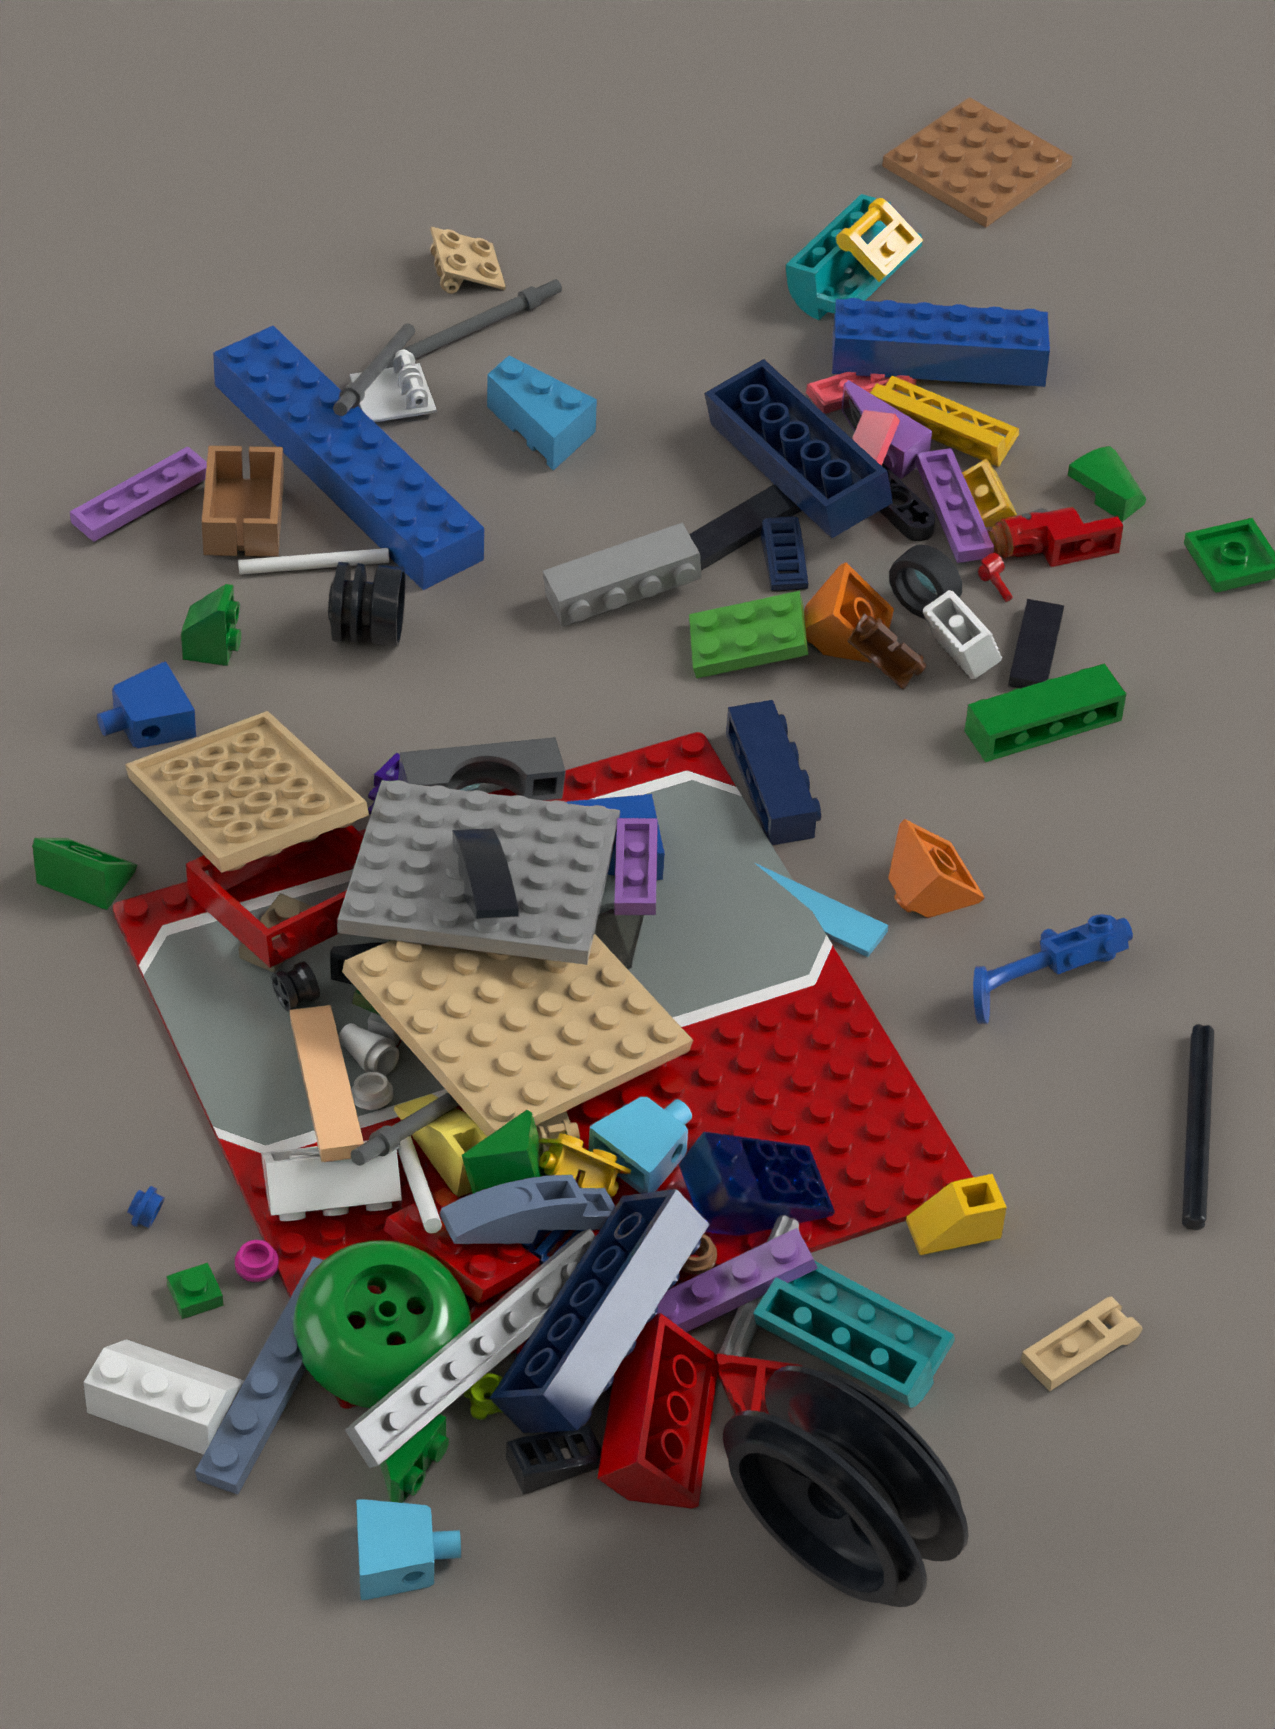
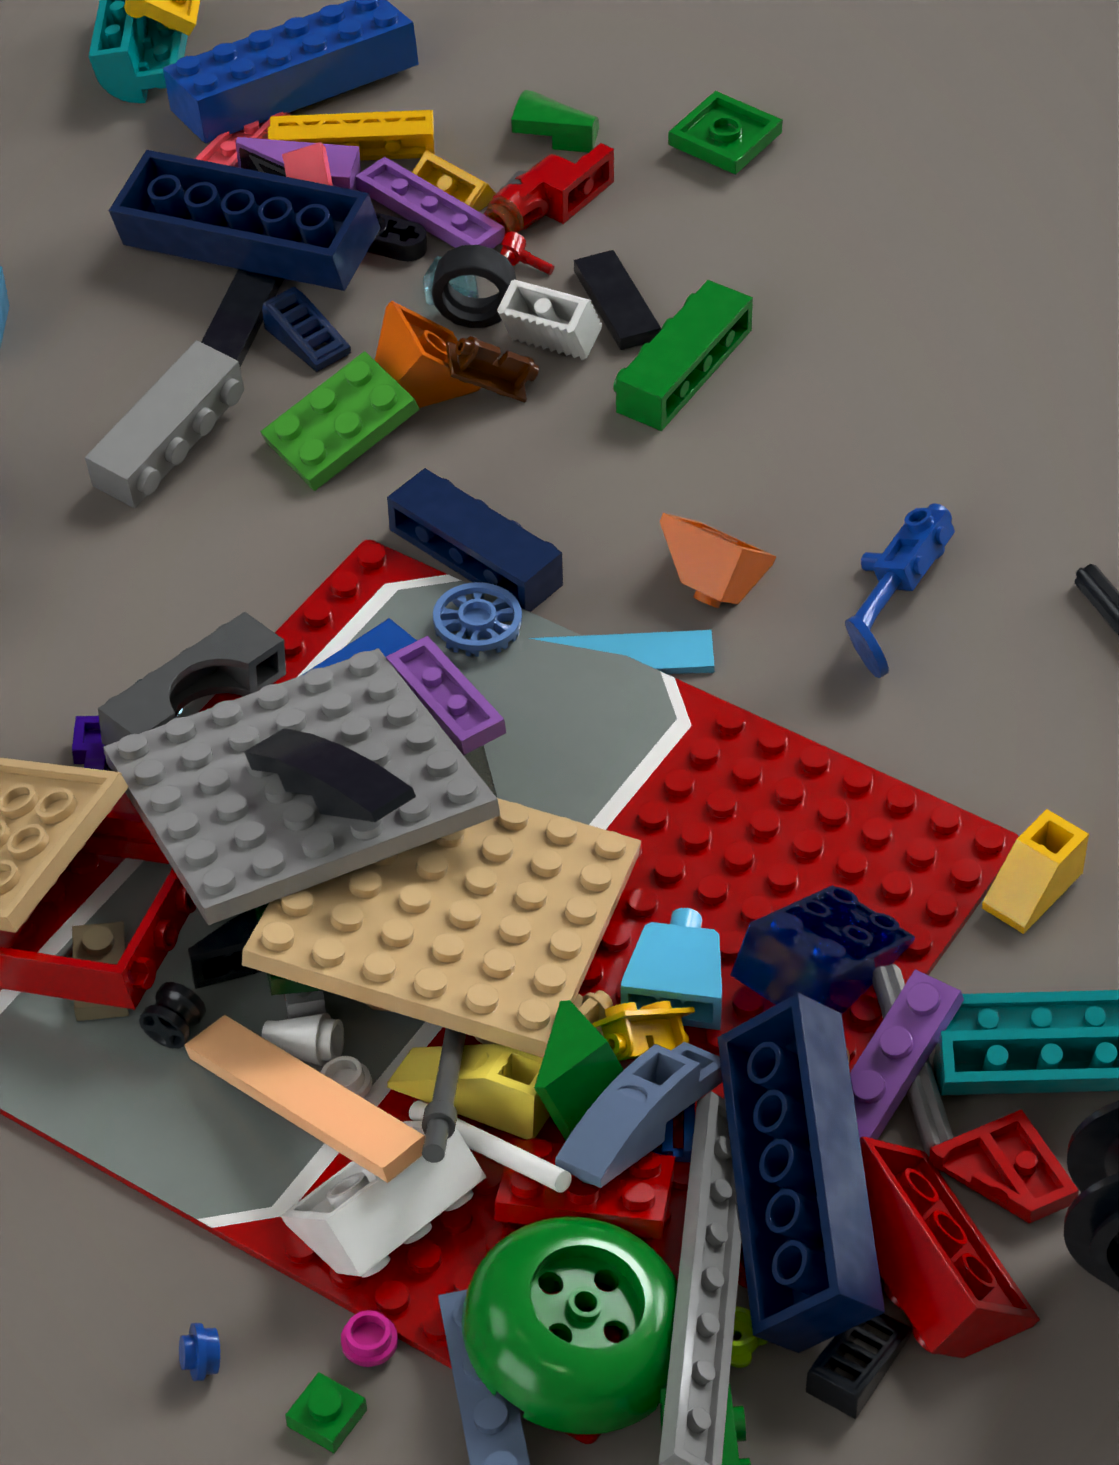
camera: 30 degrees left, 0 degrees up
(725, 828) = (477, 618): none -> medium blue wheel

